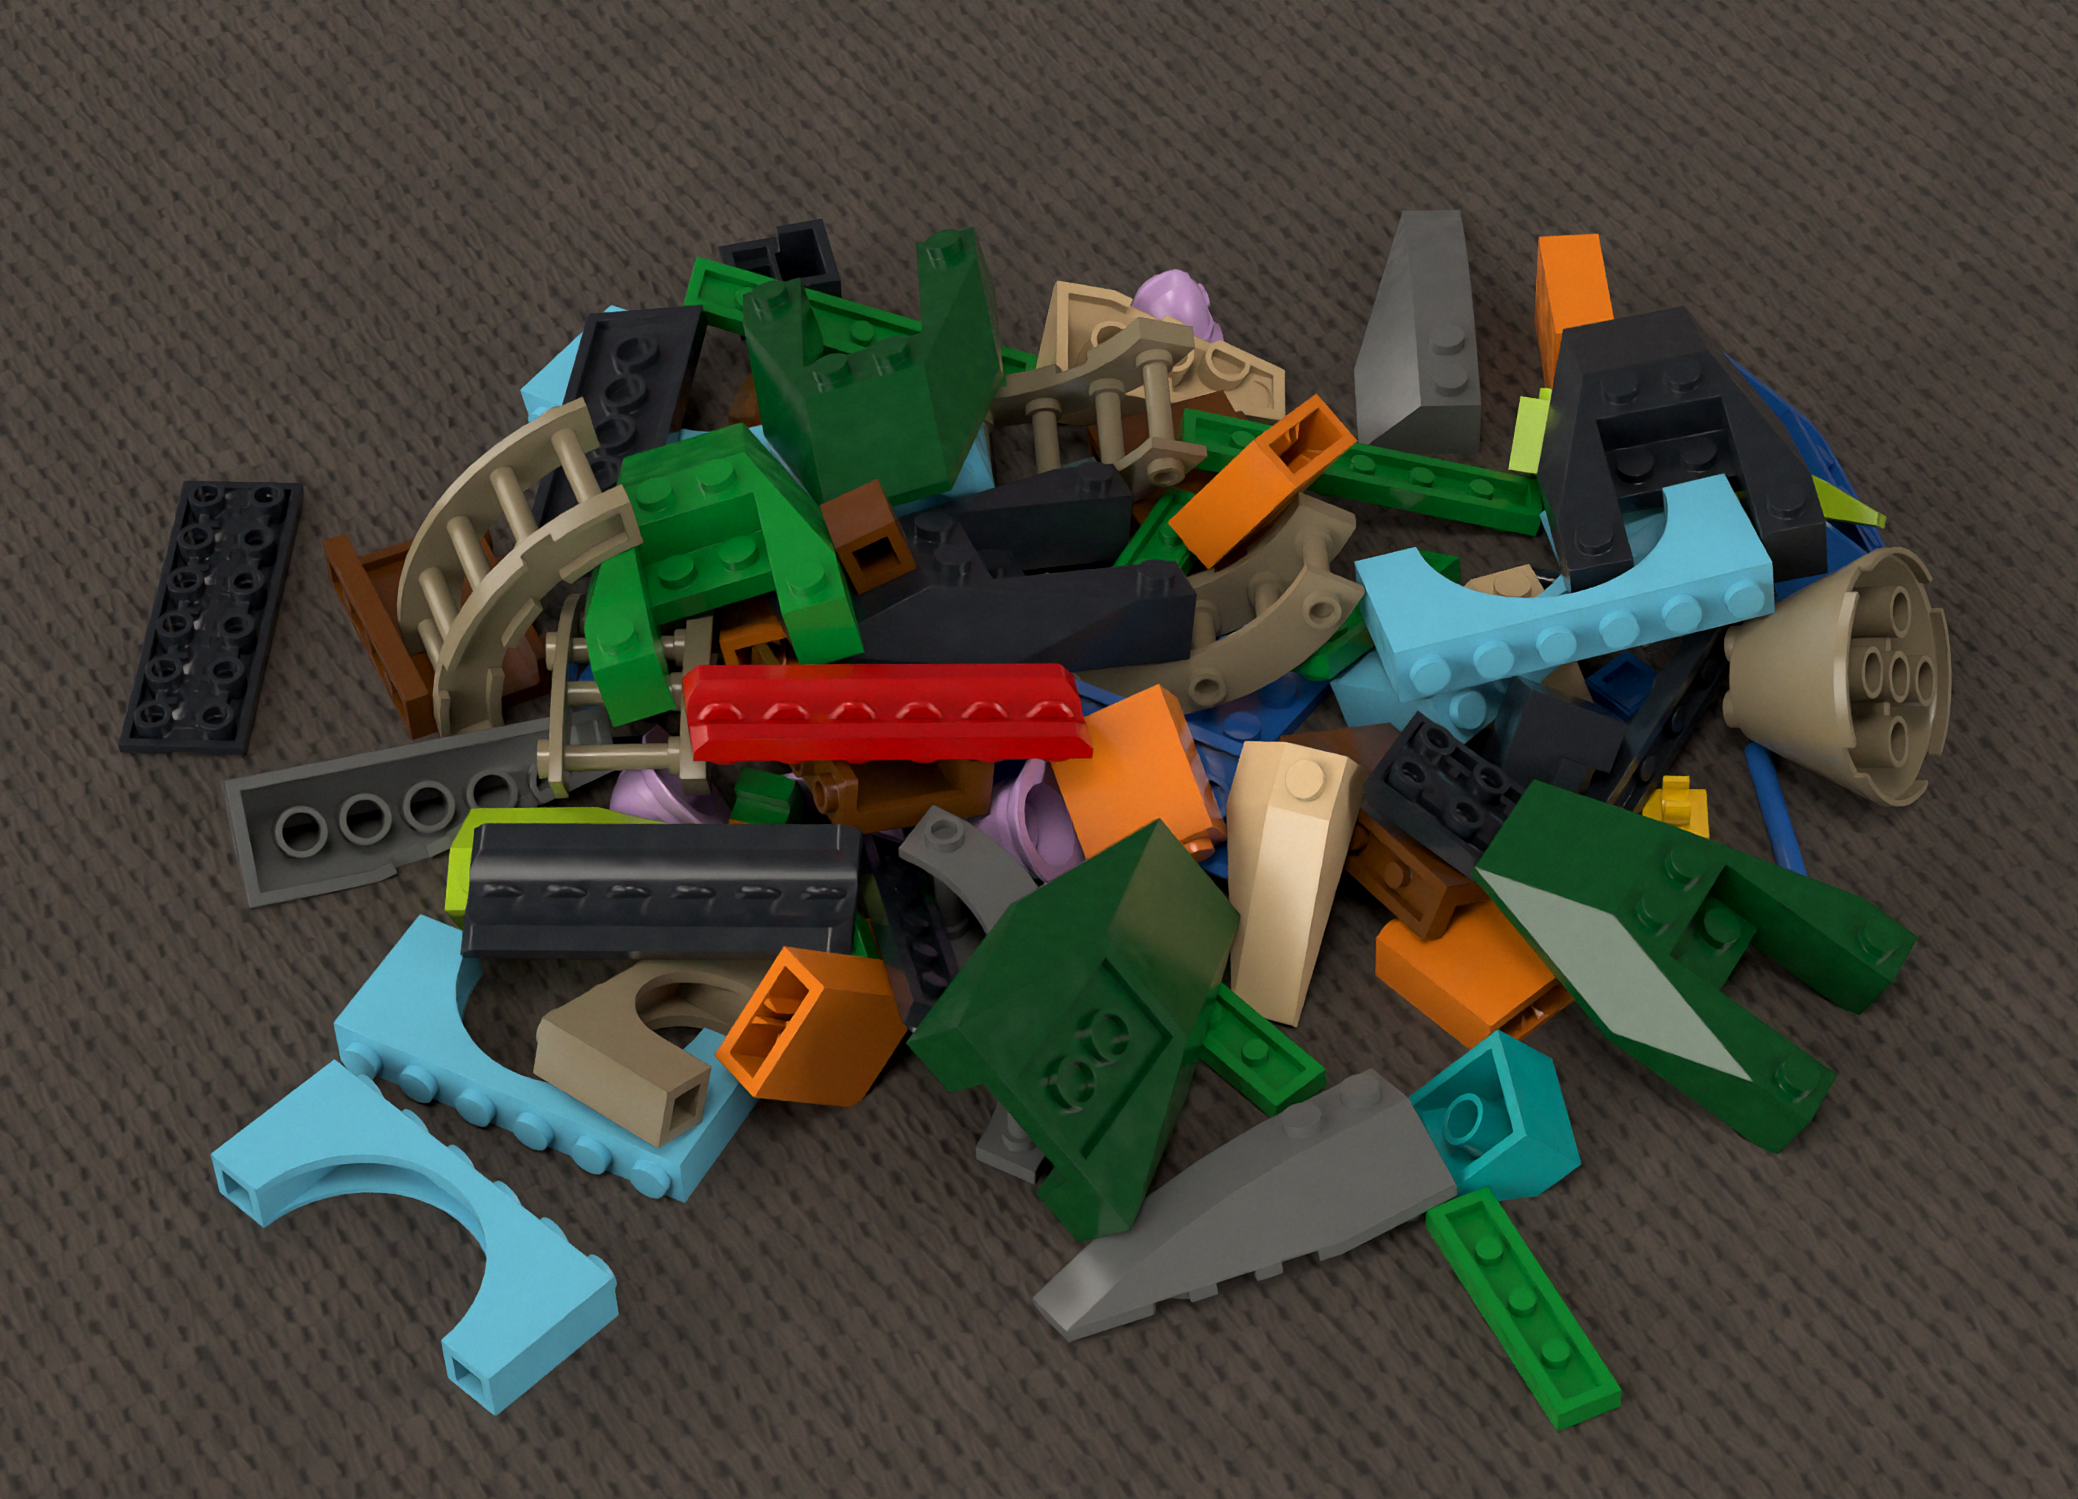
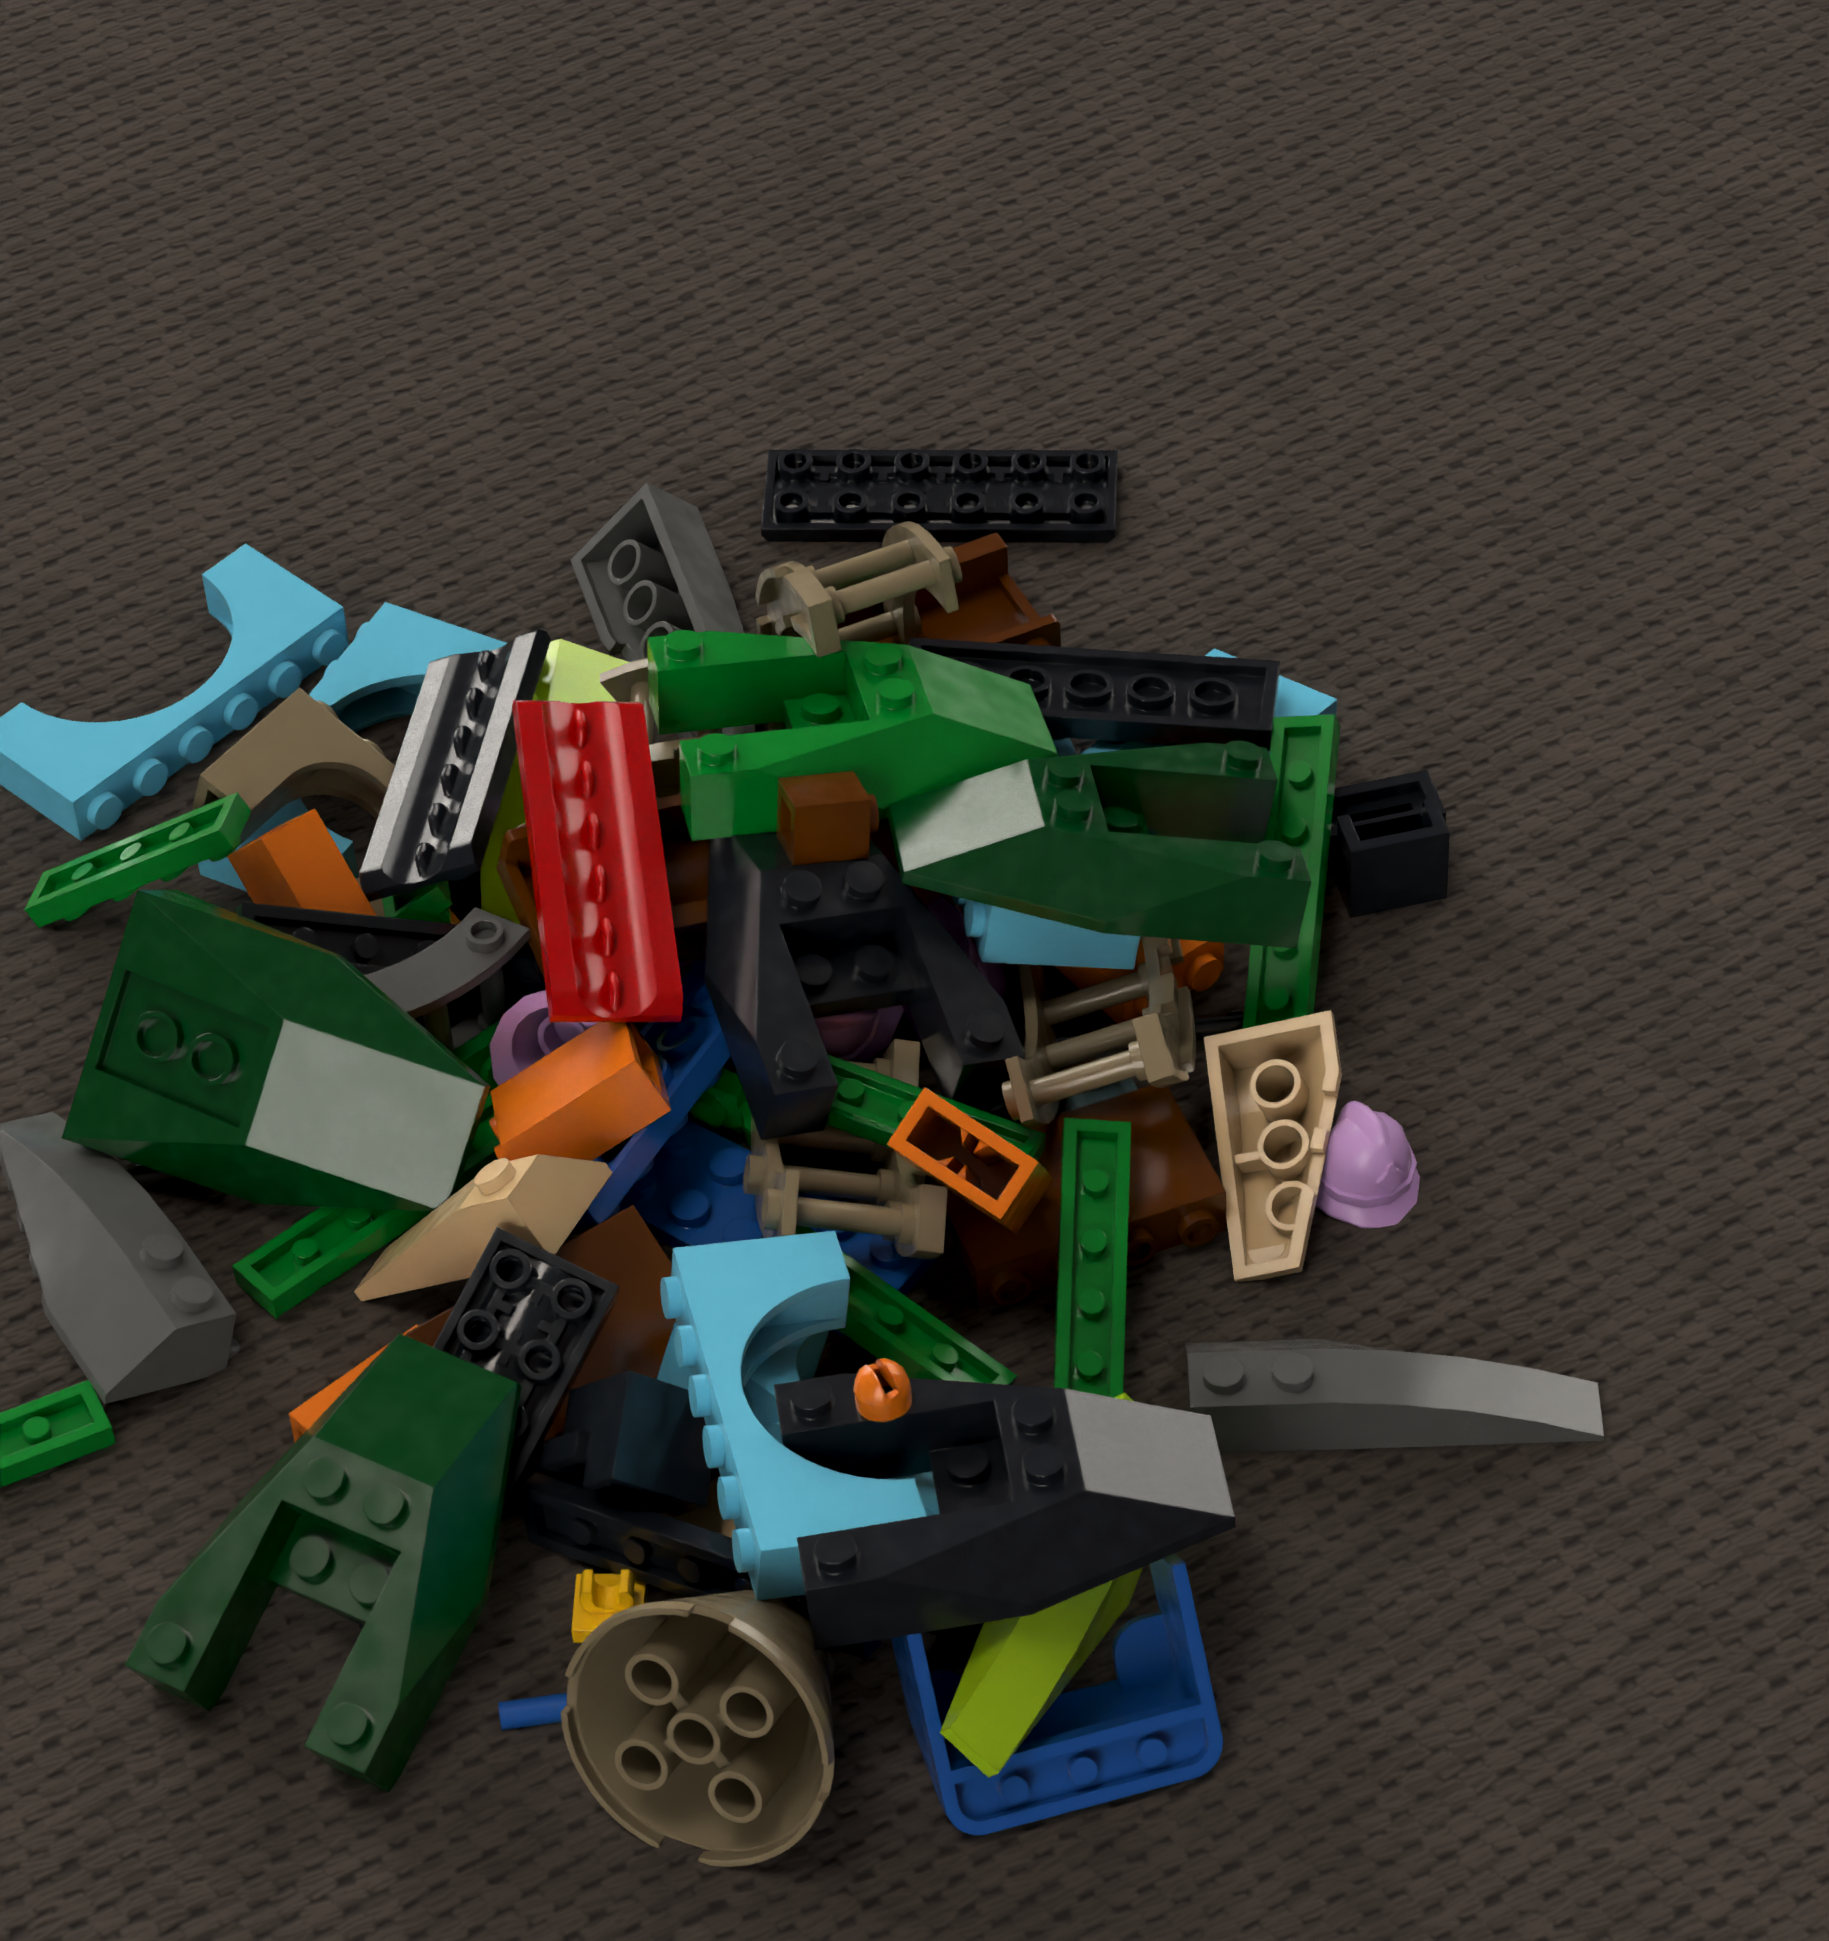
camera: 90 degrees right, 0 degrees up
(728, 1196) = (137, 860): none -> green plate
(1499, 1120) = (186, 1441): teal slope -> none
(1568, 292) = (1335, 1501): orange brick -> none
(1593, 483) = (870, 1397): none -> orange hinge

